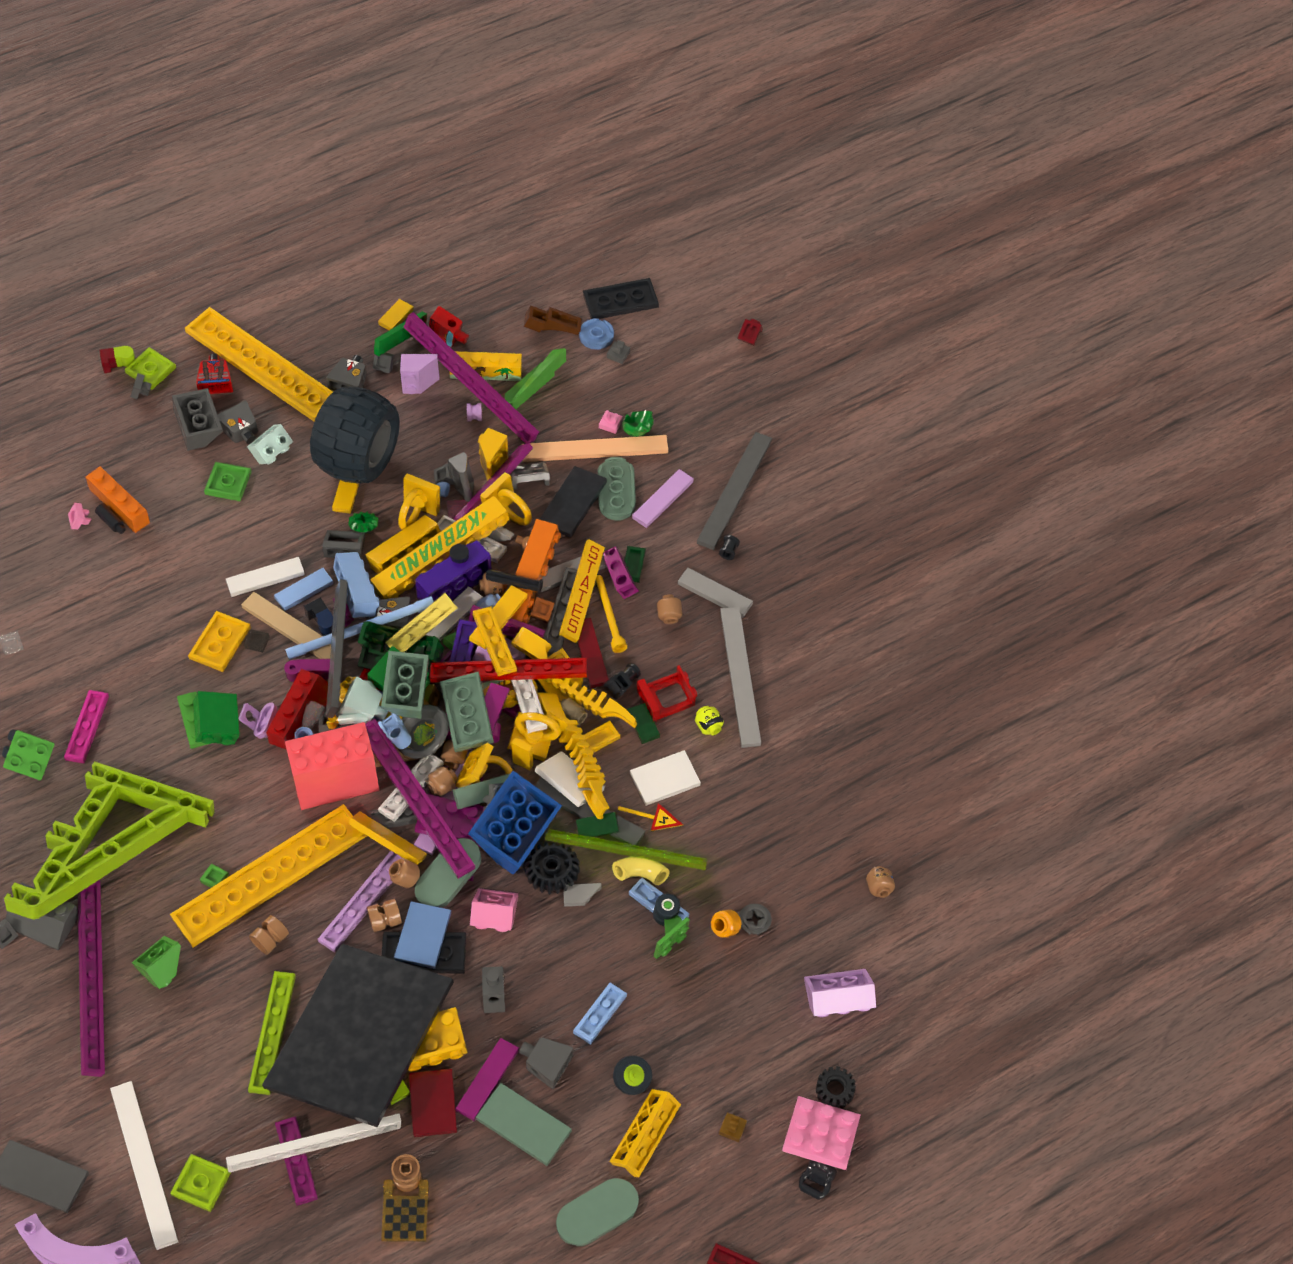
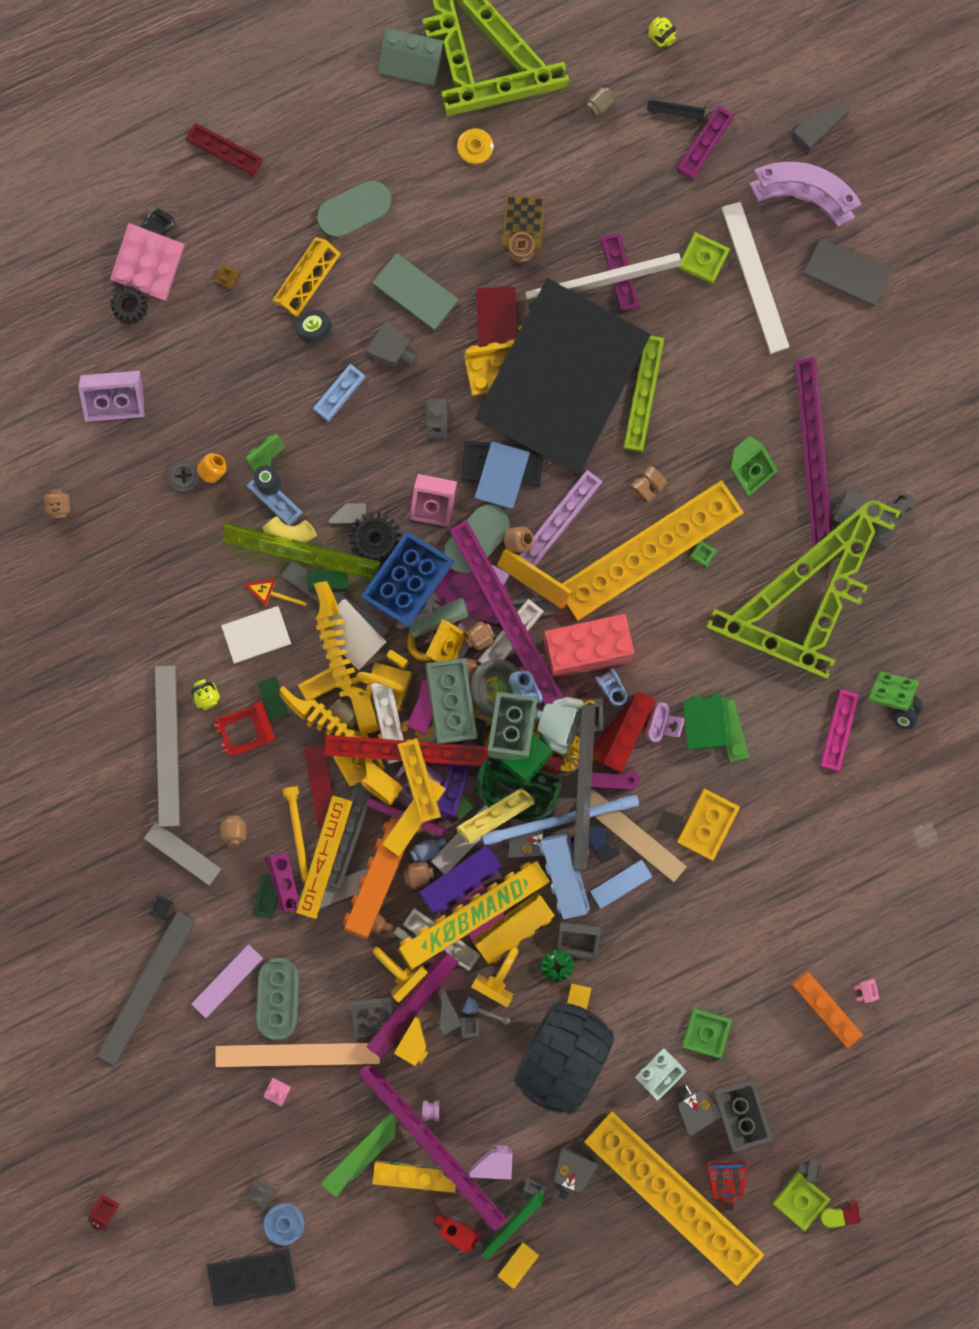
camera: 175 degrees left, 25 degrees up
(110, 518) = (832, 987): black cylinder -> none
(265, 576) = (662, 902): white tile -> none
(312, 714) = (608, 722): clear cone -> none
(384, 915) = (532, 501): medium nougat wheel -> none
(459, 553) = (452, 892): black tile -> none
(487, 1079) = (446, 335): magenta tile -> none
(514, 580) = (395, 862): black axle -> none
(542, 609) = (367, 835): dark orange tile -> none
(552, 319) = (334, 1241): reddish brown slope -> none
(574, 500) = (327, 979): black tile -> none
(620, 682) = (291, 745): black connector -> none
(638, 423) = (245, 1082): green hair -> none

